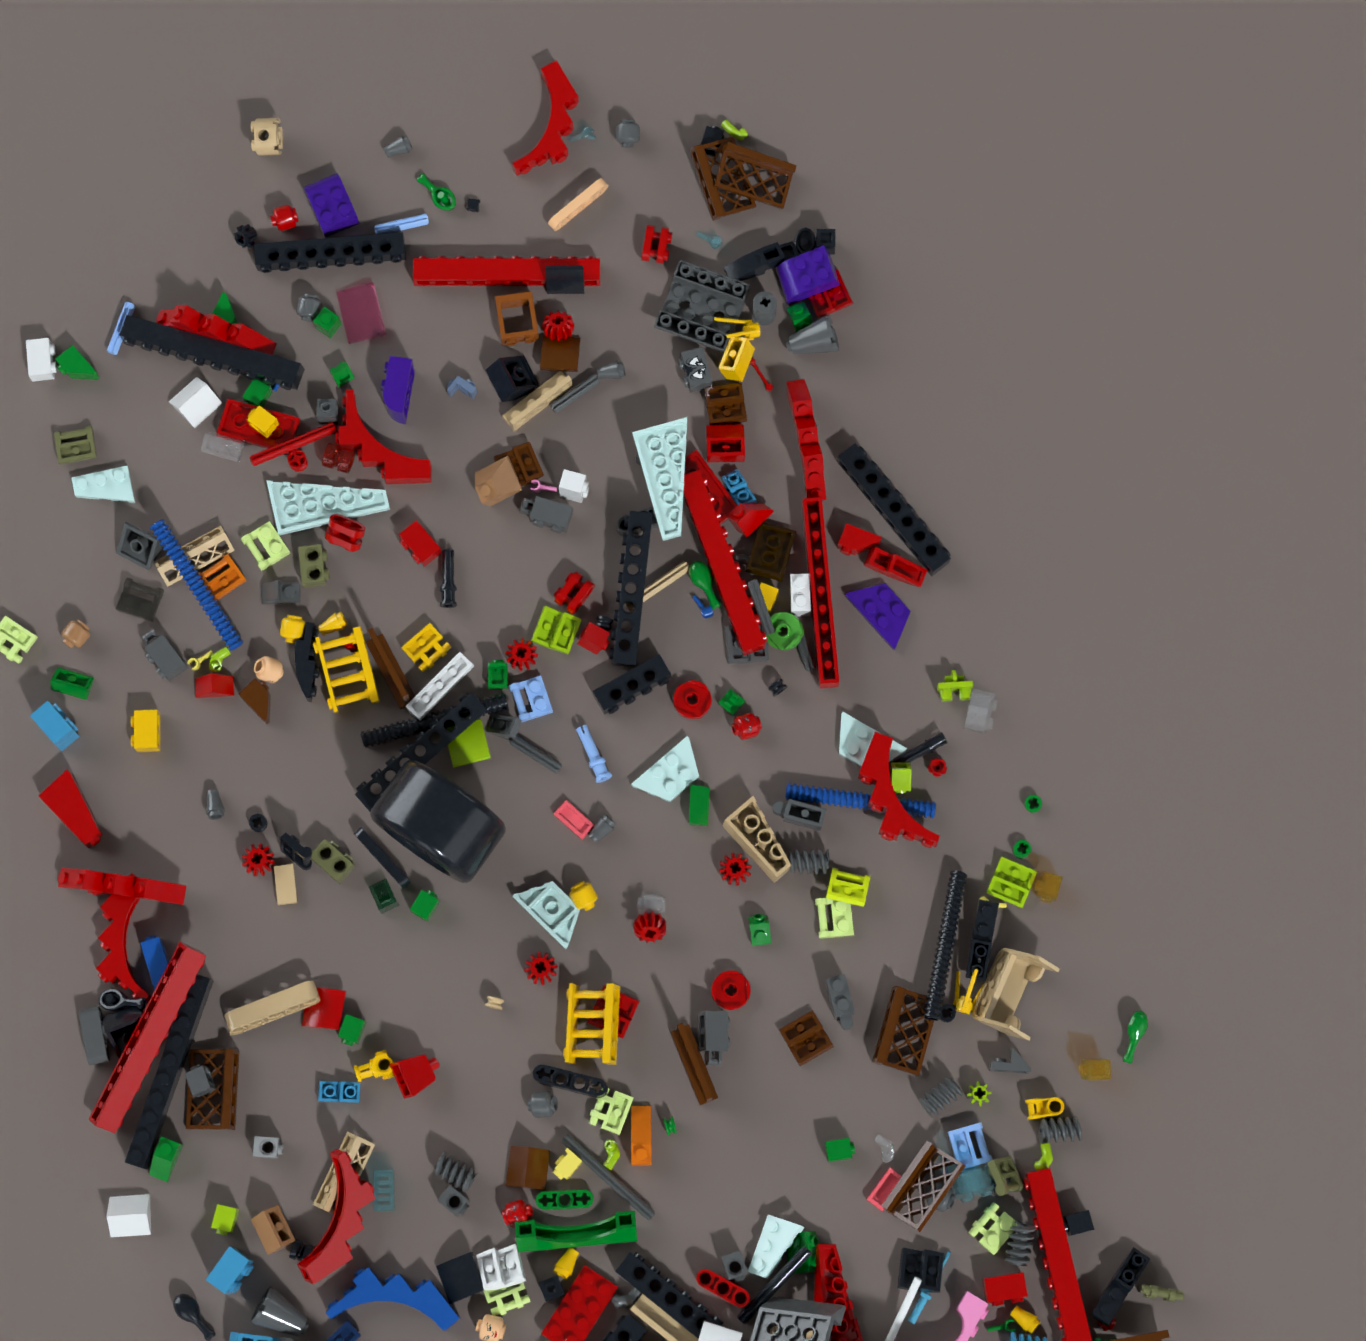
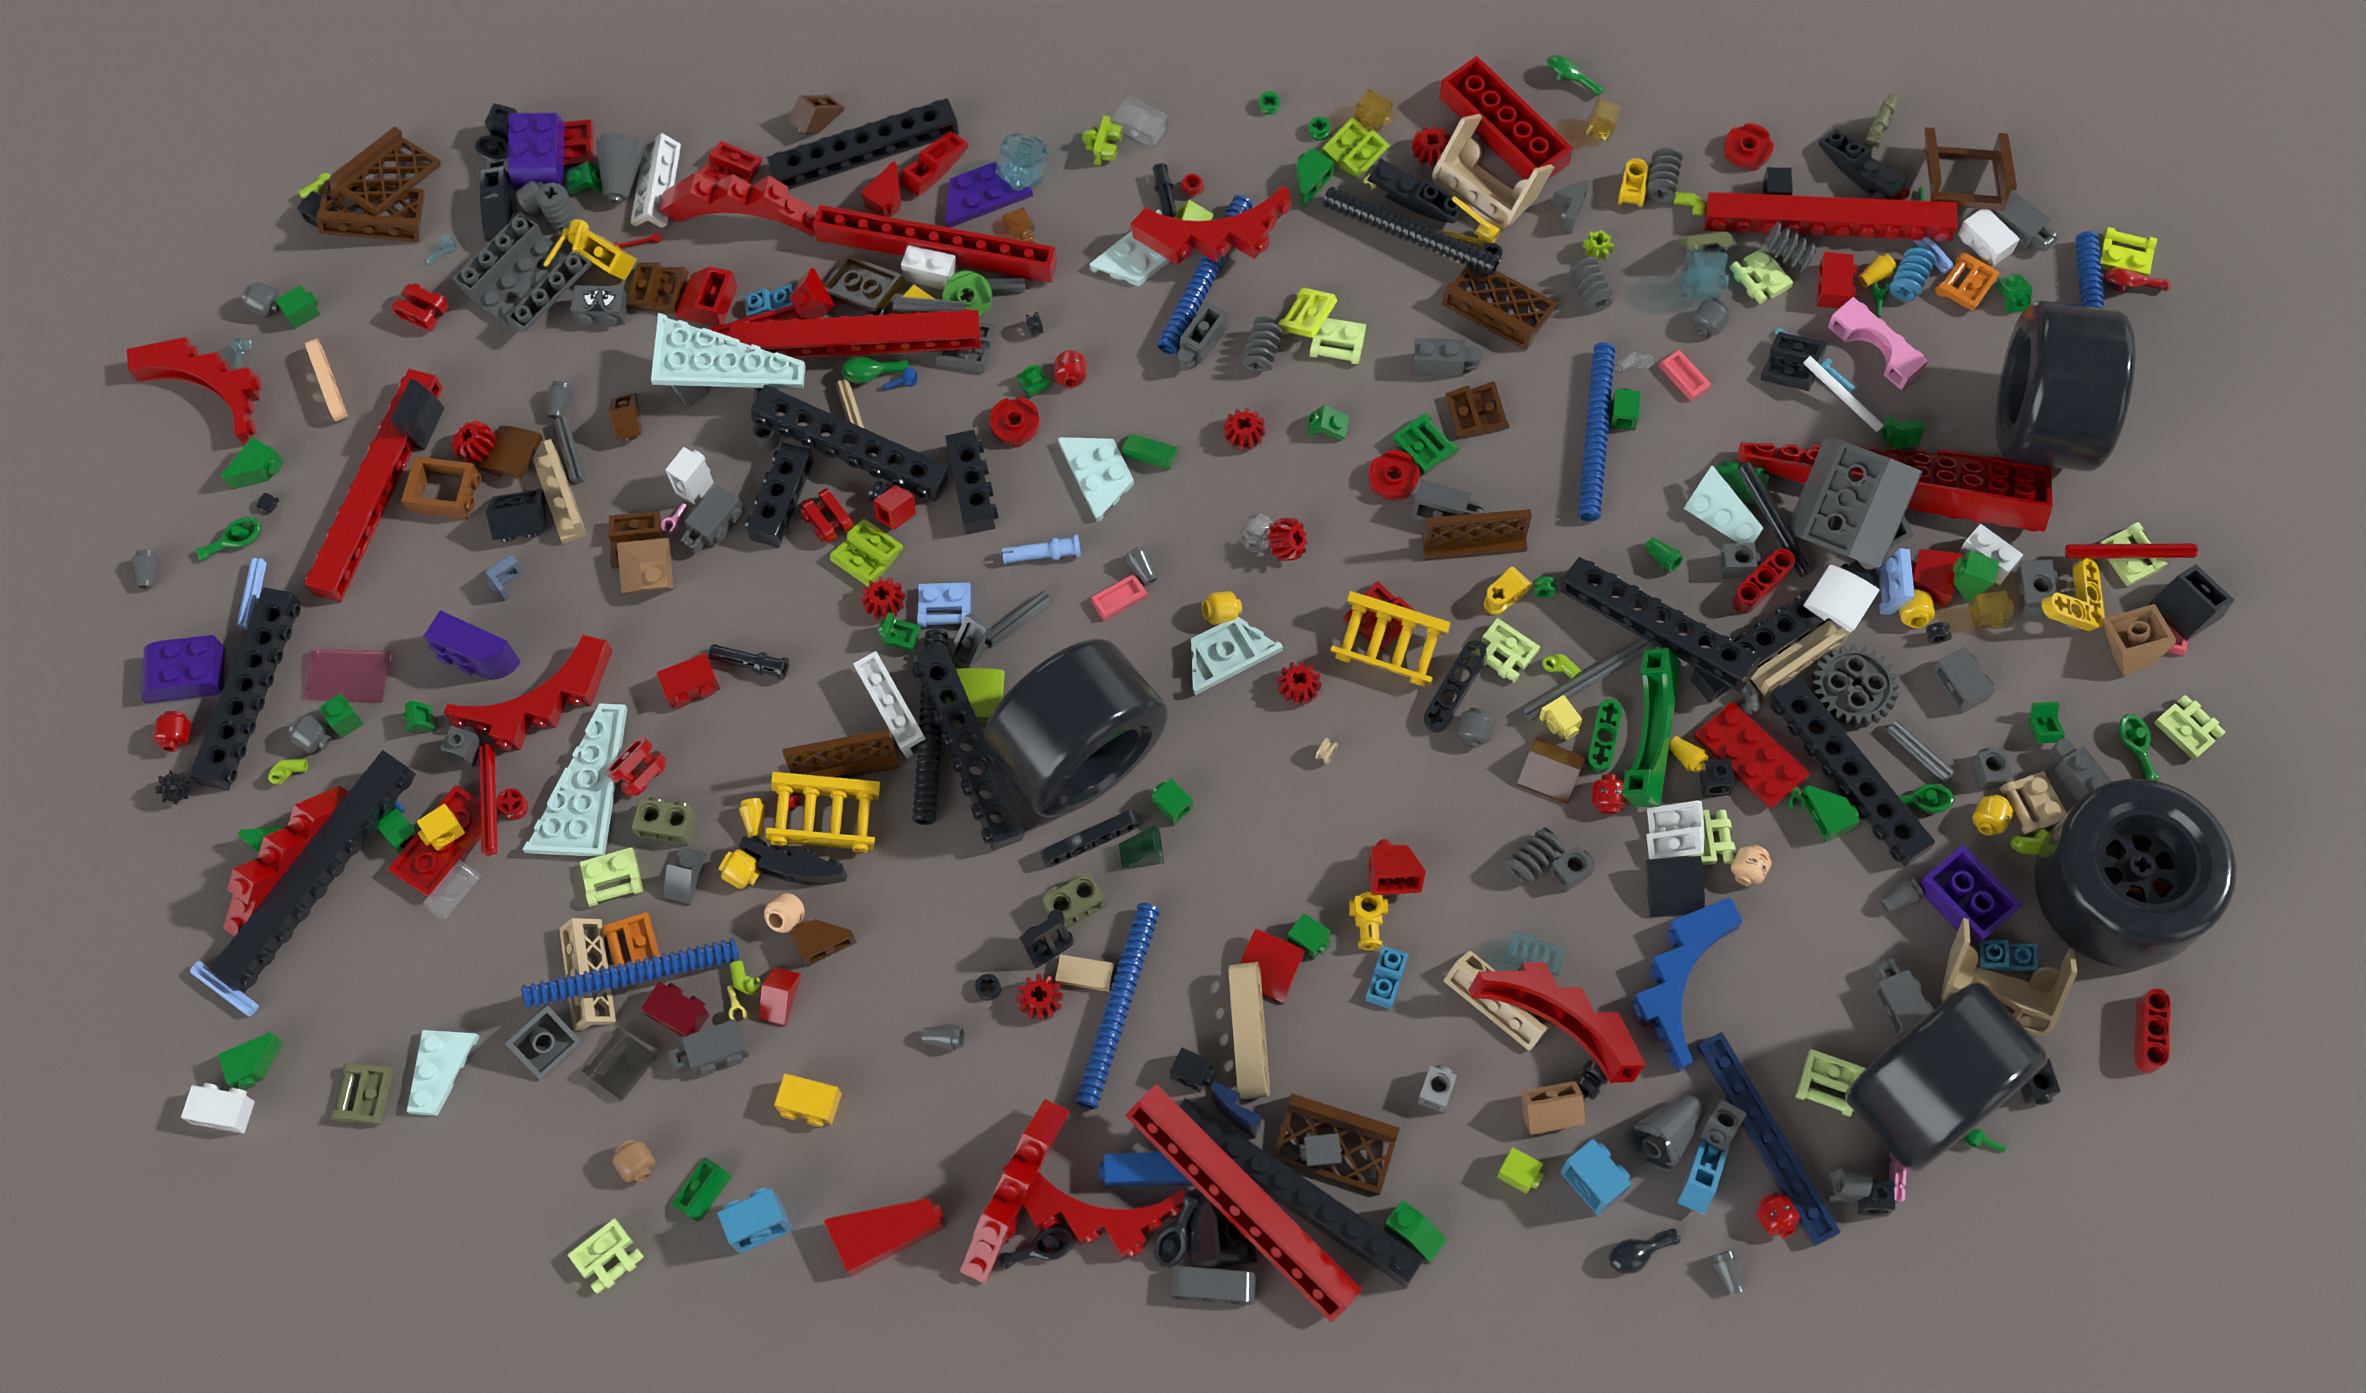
camera: 70 degrees left, 10 degrees down
(92, 919) = (1047, 1245): none -> black piece
(129, 1215) = (1480, 1303): white slope -> none
(183, 623) = (674, 1010): none -> dark red brick
(195, 402) = (372, 915): white slope -> none
(214, 1009) = (1229, 1104): none -> dark blue slope
(235, 977) = (1192, 1070): none -> black brick
(268, 914) = (1117, 1006): none -> blue piece
(271, 146) = (43, 708): tan brick -> none
(281, 301) = (285, 768): none -> lime arm
(344, 461) = (538, 742): clear red wheel -> none
(422, 643) = (822, 714): yellow plate -> none
(497, 184) = (252, 465): none -> green slope
(610, 559) = (772, 529): none -> black brick
(611, 422) = (625, 417): none -> reddish brown slope
(629, 1282) = (1664, 635): none -> black brick
(630, 160) = (298, 306): none -> green brick
(641, 1136) = (1550, 623): orange slope -> none
(663, 1100) = (1506, 591): none -> yellow piece
(723, 1209) = (1664, 555): none -> green cone
(757, 839) = (1217, 392): tan wedge -> none
(759, 1003) = (1420, 448): none -> green plate
(770, 284) = (527, 200): none -> dark grey head
(814, 1133) = (1596, 432): none -> blue piece
(815, 371) = (655, 176): none -> white fence
(843, 418) = (728, 160): none -> red slope
(861, 648) = (1019, 225): none -> clear orange plate
(910, 464) = (814, 113): none -> reddish brown slope
(911, 632) = (1022, 161): none -> clear light blue brick
(913, 1179) = (1682, 340): reddish brown fence -> none
(963, 1147) = (1657, 279): light blue plate -> none
(973, 855) = (1312, 174): none -> green slope
(1030, 933) = (1429, 144): none -> red gear
(1067, 992) = (1507, 120): none -> red brick
(1120, 1184) = (1748, 158): none -> red plate

